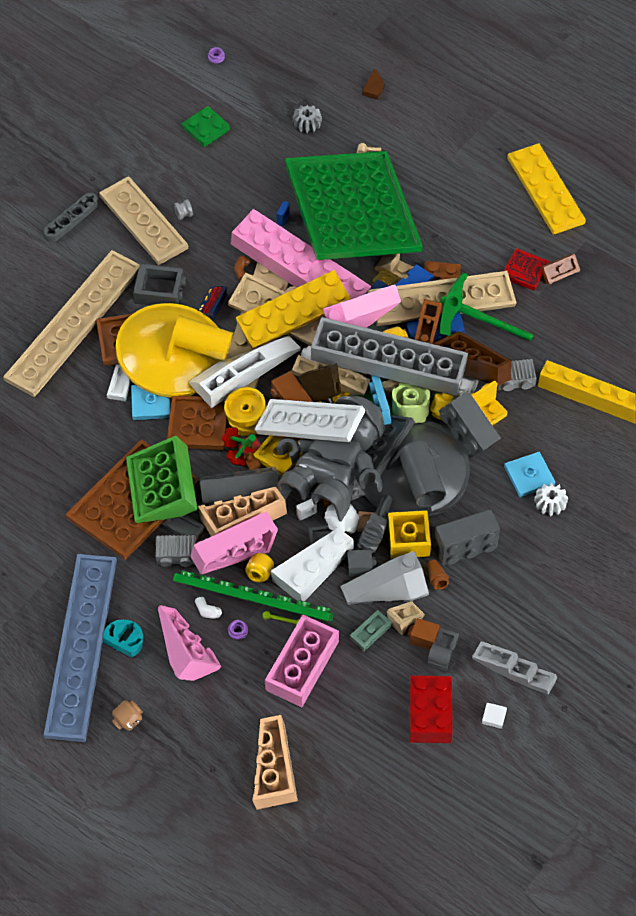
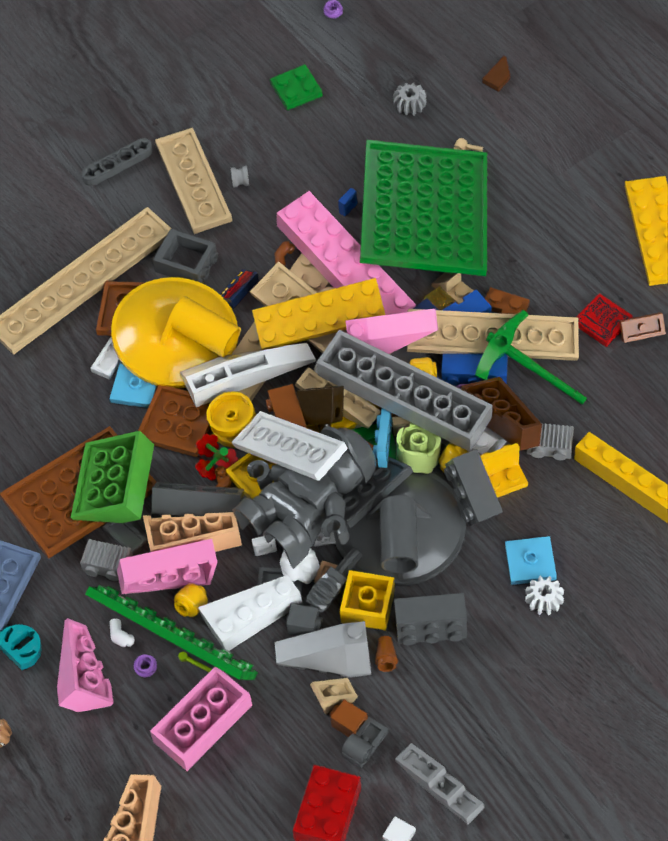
camera: 20 degrees right, 0 degrees up
(370, 630) = (290, 701): sand green plate -> none
(428, 321) = (464, 359): dark orange slope -> none

